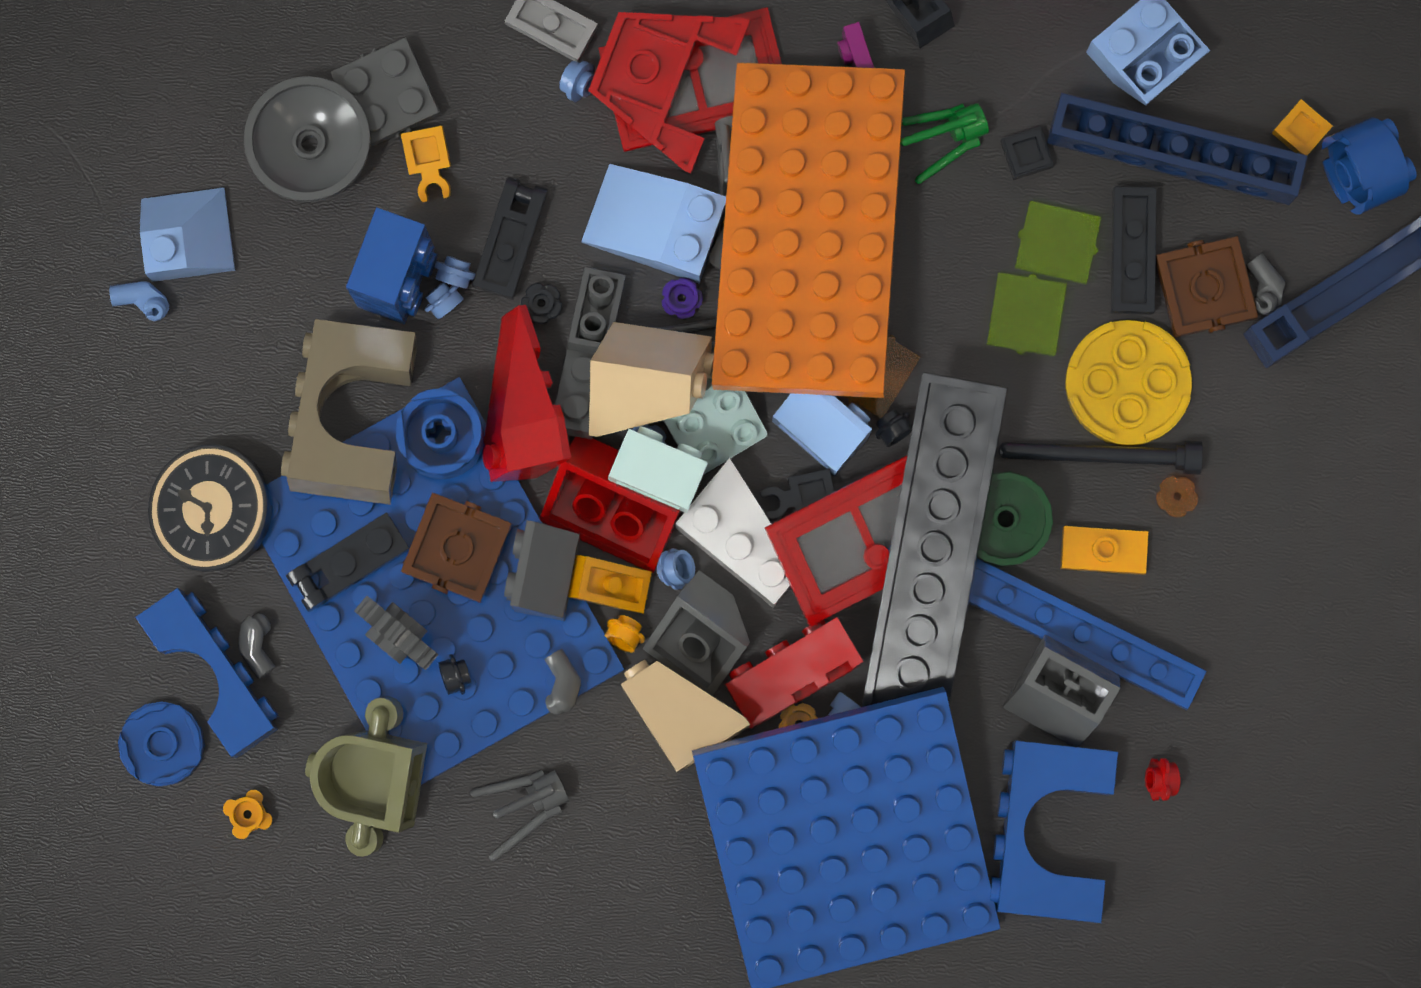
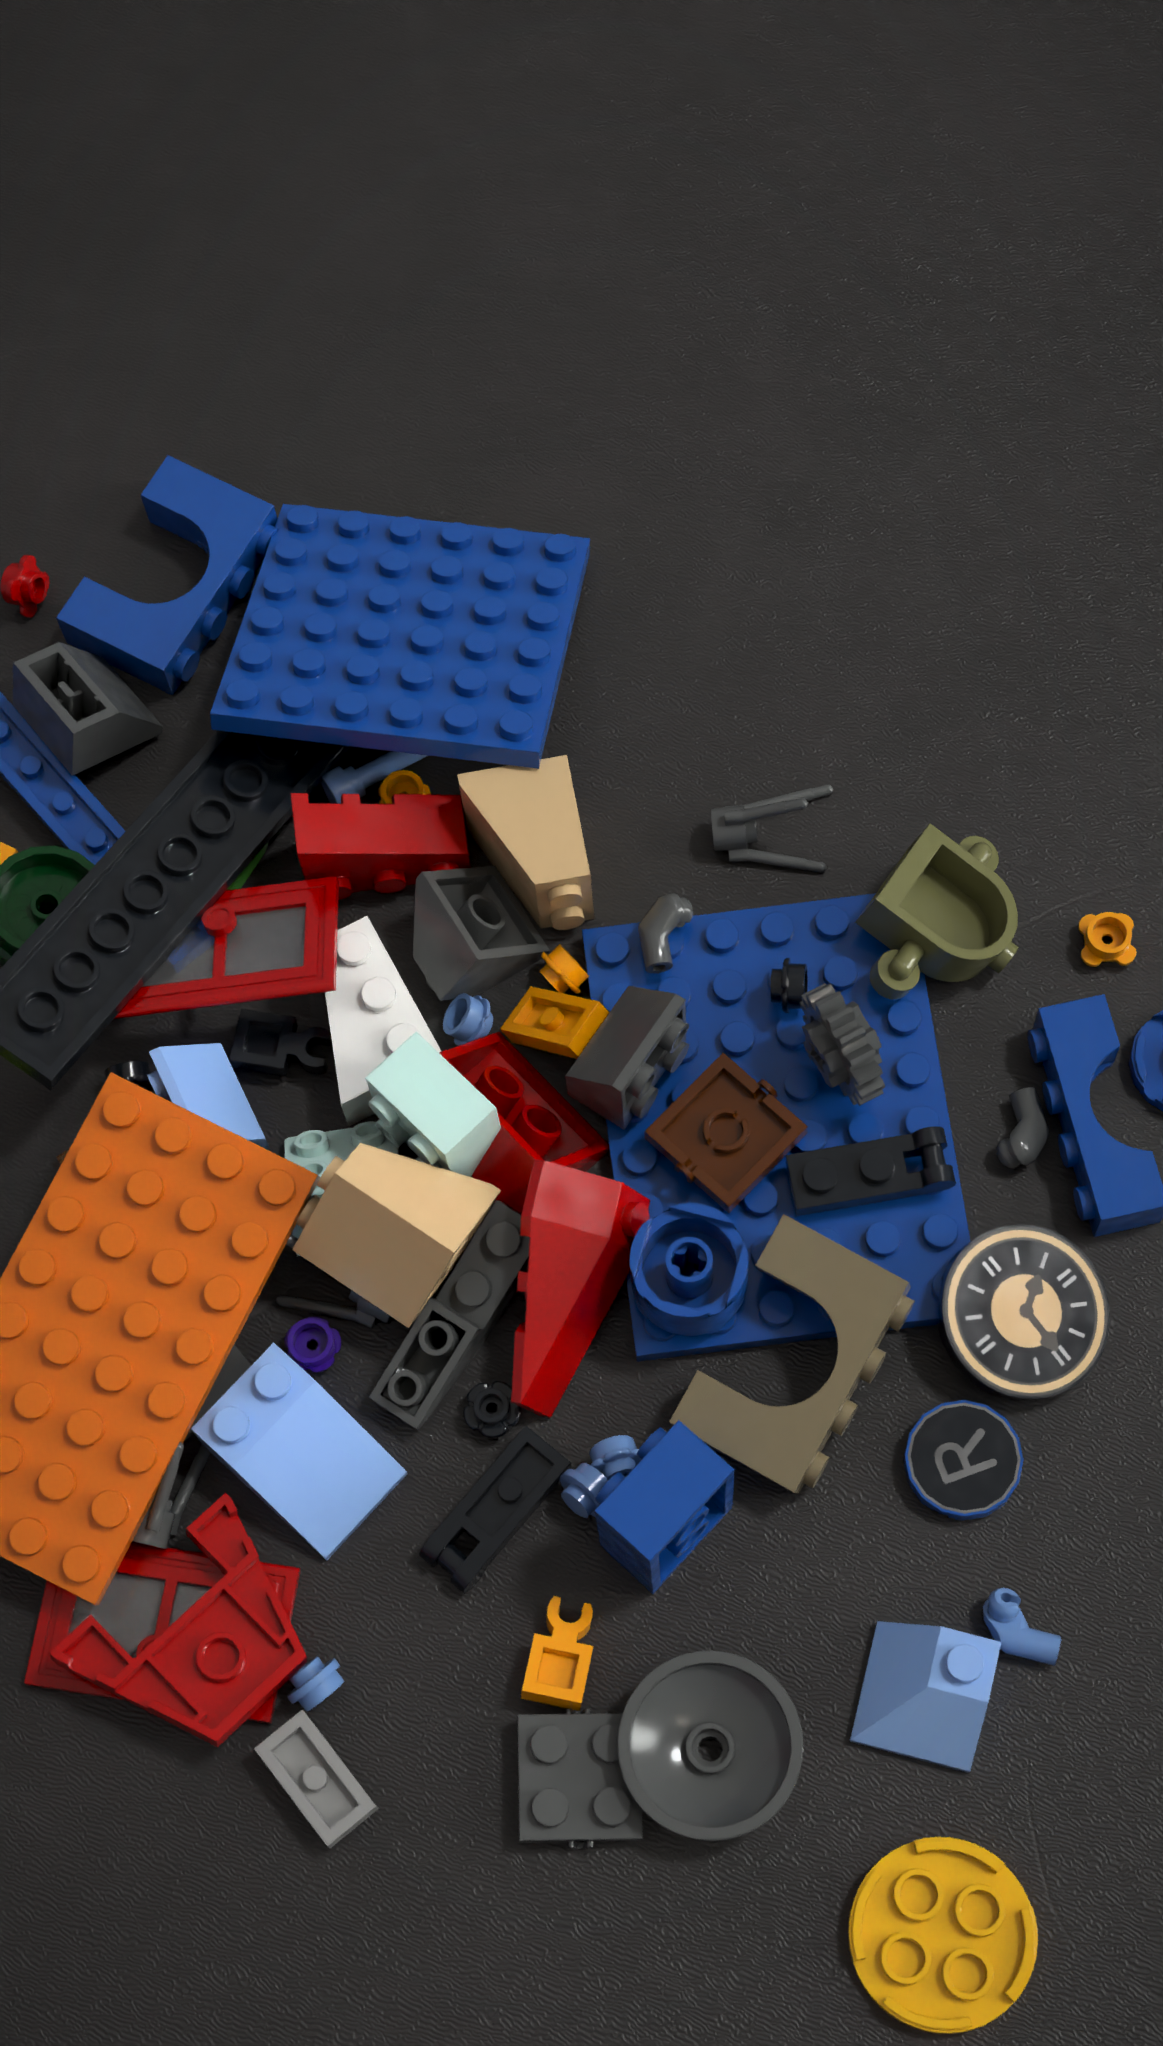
camera: 150 degrees left, 15 degrees down
(123, 93) = (942, 1935): none -> yellow tile
(216, 396) = (963, 1460): none -> black tile

